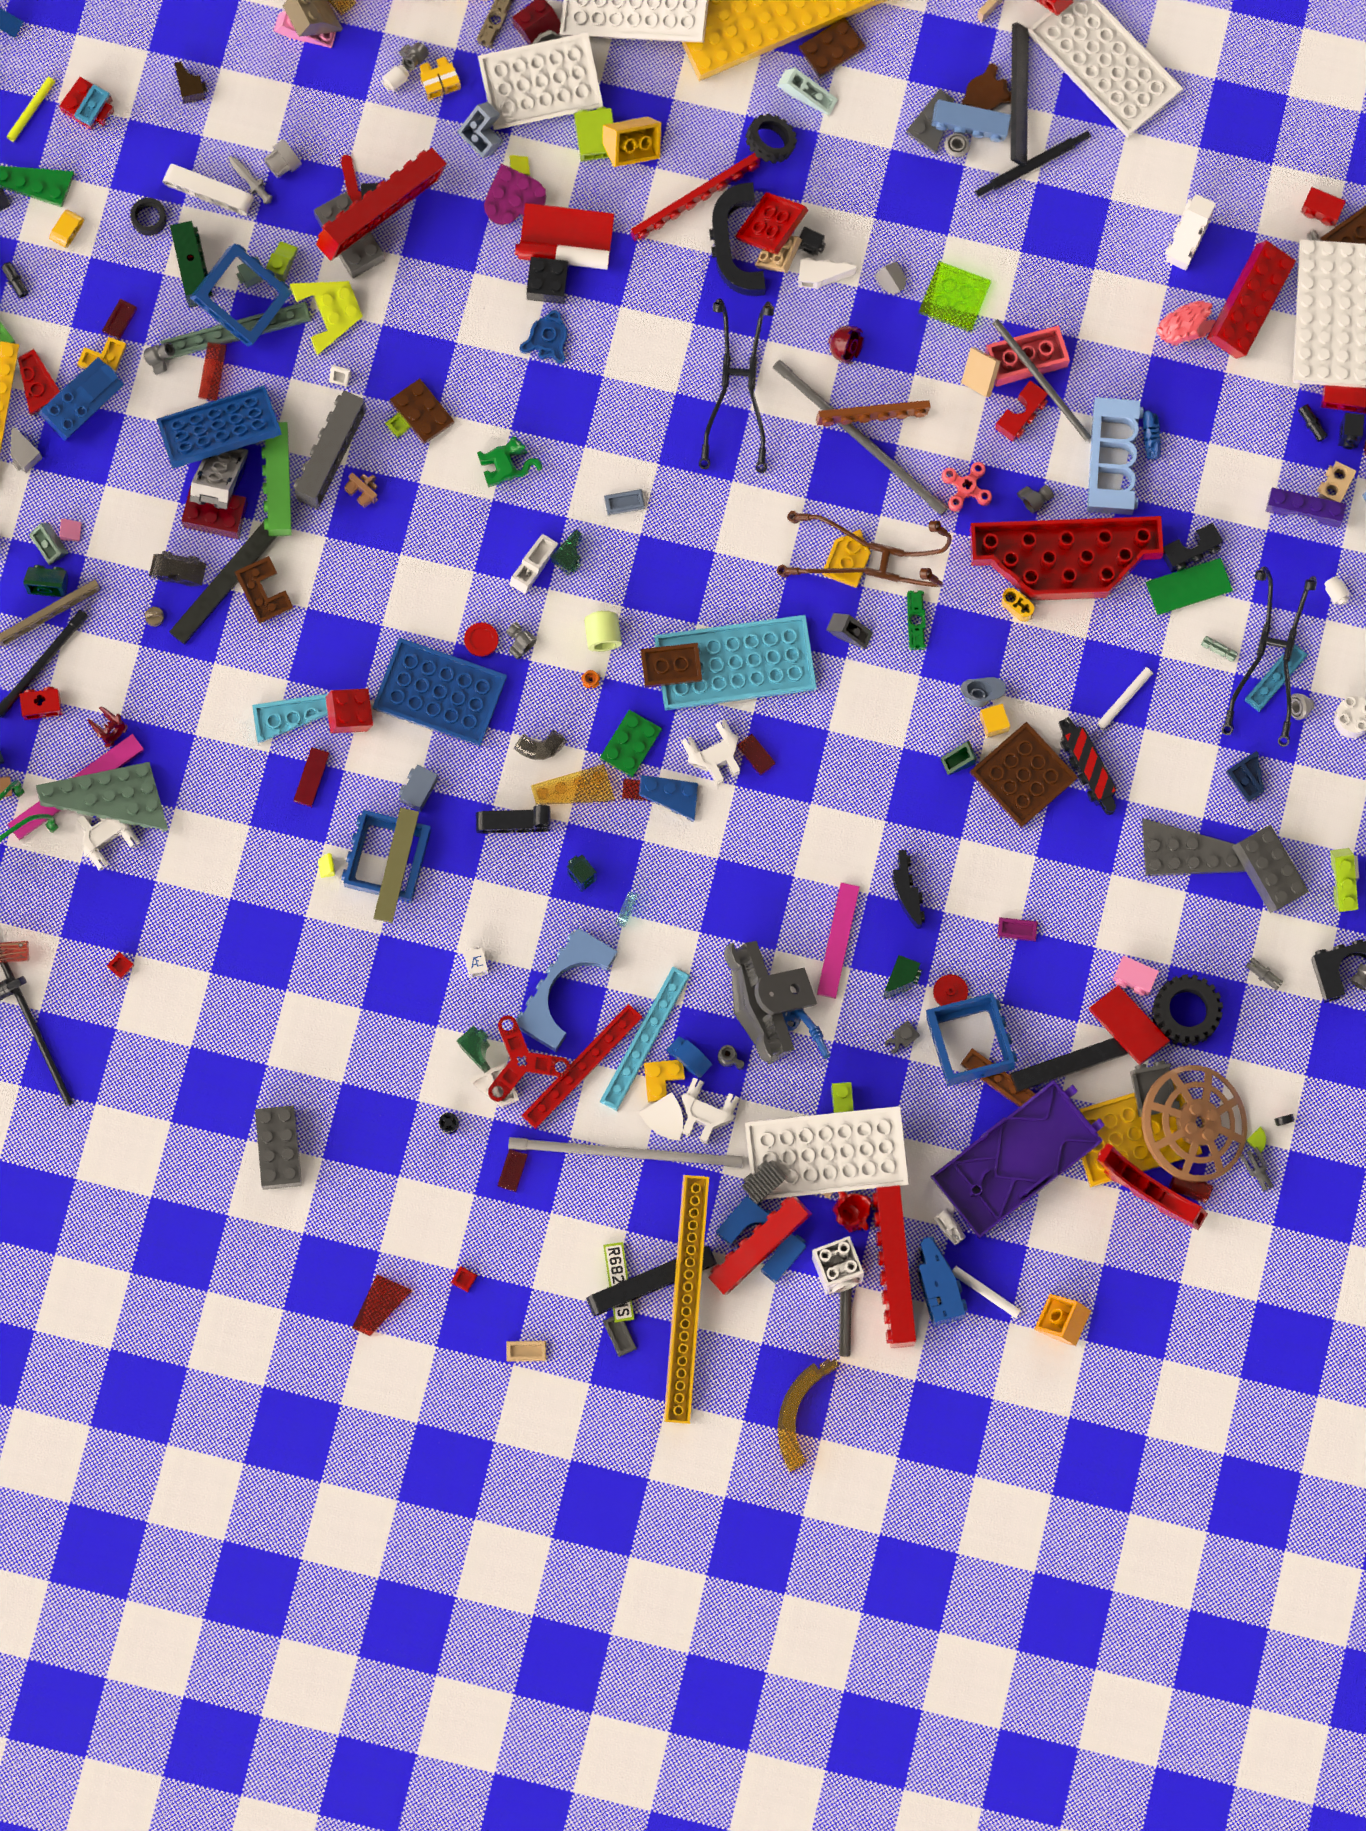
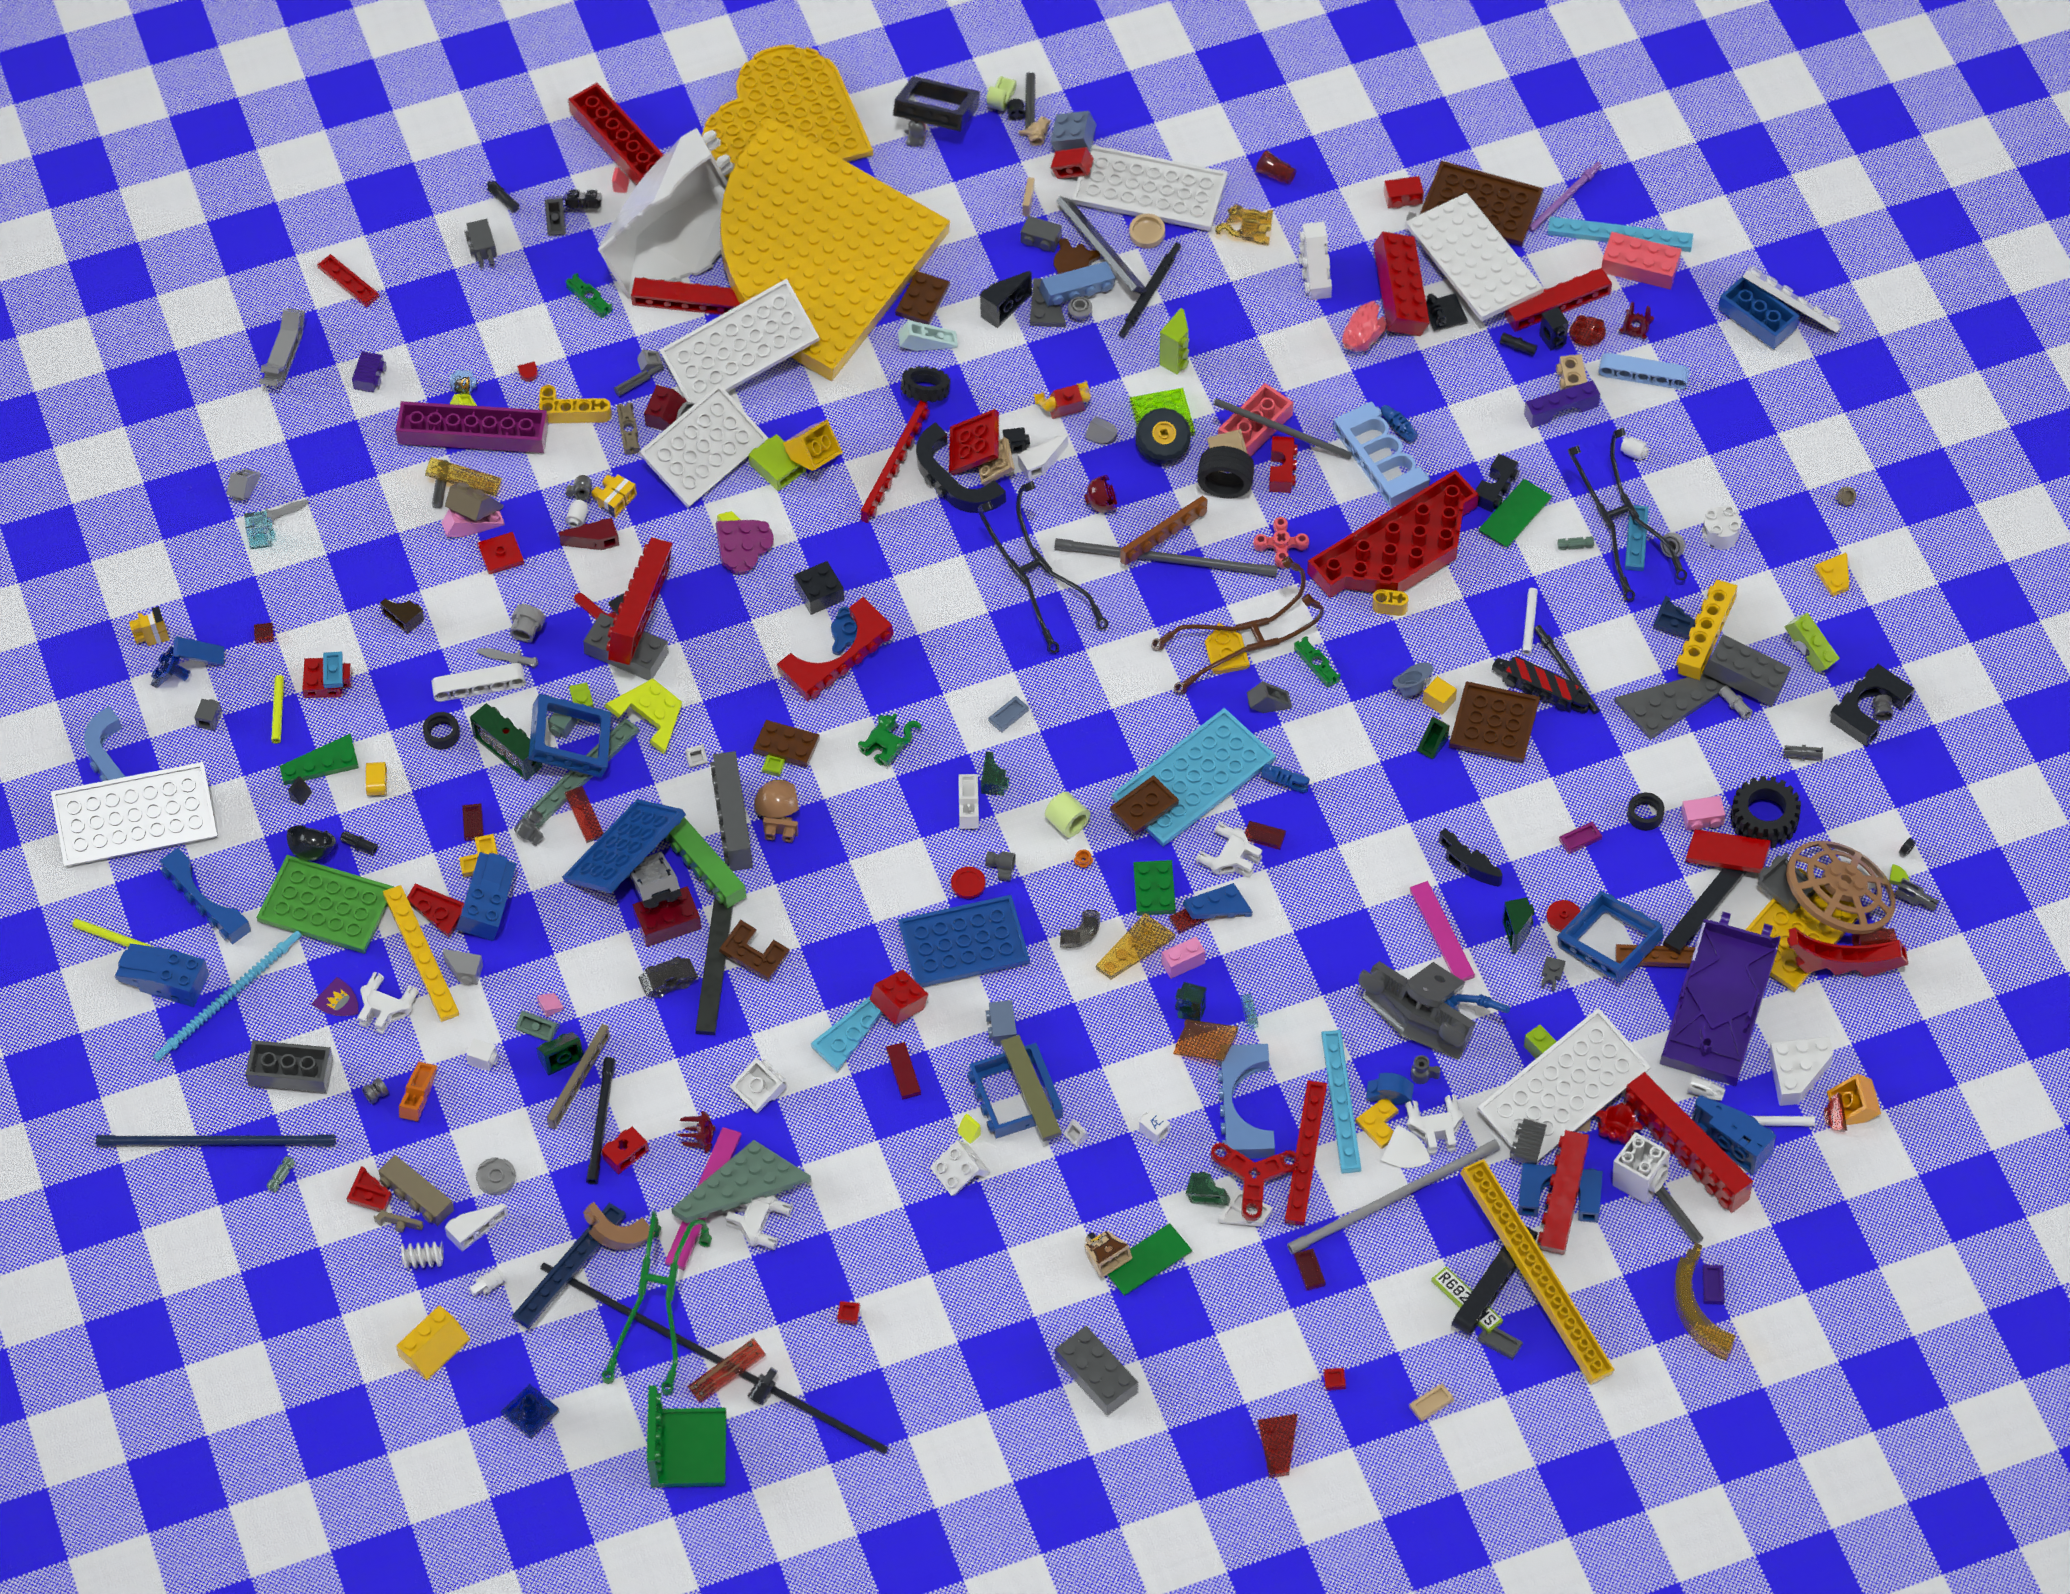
camera: 30 degrees left, 20 degrees down
(66, 28) = (263, 633): none -> clear red tile
(154, 616) = (673, 1027): dark tan tile -> none
(185, 715) = (758, 1084): none -> white plate
(295, 894) = (958, 1167): none -> white bracket
(309, 74) = (500, 553): none -> red plate
(356, 1049) = (1106, 1252): none -> torso
(374, 462) = (776, 799): none -> medium nougat cylinder
(389, 1075) = (1150, 1258): none -> green piece
(397, 109) = (594, 536): none -> dark red slope
(410, 926) = (1076, 1133): none -> white slope
(448, 1117) = (1227, 1259): black wheel -> none
(477, 130) = (675, 508): sand blue brick -> none
(514, 820) = (1105, 999): black beam -> none
(558, 353) = (812, 678): none -> red arch
(566, 235) = (809, 544): red door -> none
(570, 913) = (1205, 1040): none -> clear orange piece
(606, 825) = (1183, 957): none -> bright pink brick
(810, 713) = (1286, 778): none -> blue hinge
(827, 1401) = (1713, 1284): none -> dark purple tile
(879, 231) = (1065, 400): none -> red torso
(896, 95) = (1004, 298): none -> black slope
(935, 320) = (1163, 436): none -> black wheel
(961, 392) = (1225, 484): none -> black tyre
(976, 48) = (1041, 234): none -> dark grey brick
(1008, 236) = (1174, 343): none -> lime slope
(1035, 500) = (1342, 521): dark grey piece -> none
(1038, 1320) = (1835, 1114): none -> clear red tile
(1039, 1259) = (1798, 1066): none -> white brick
(1071, 103) = (1147, 230): none -> tan piece
(1088, 956) = (1642, 823): none -> black tyre
(1124, 728) = (1547, 642): none -> black bar
(1162, 158) = (1253, 226): none -> clear yellow animal
(1227, 111) = (1275, 168): none -> clear red plant
(1230, 835) = (1707, 629): none -> yellow brick
(1242, 890) = (1735, 702): none -> light grey pin
(1272, 349) = (1444, 311): none -> black hinge

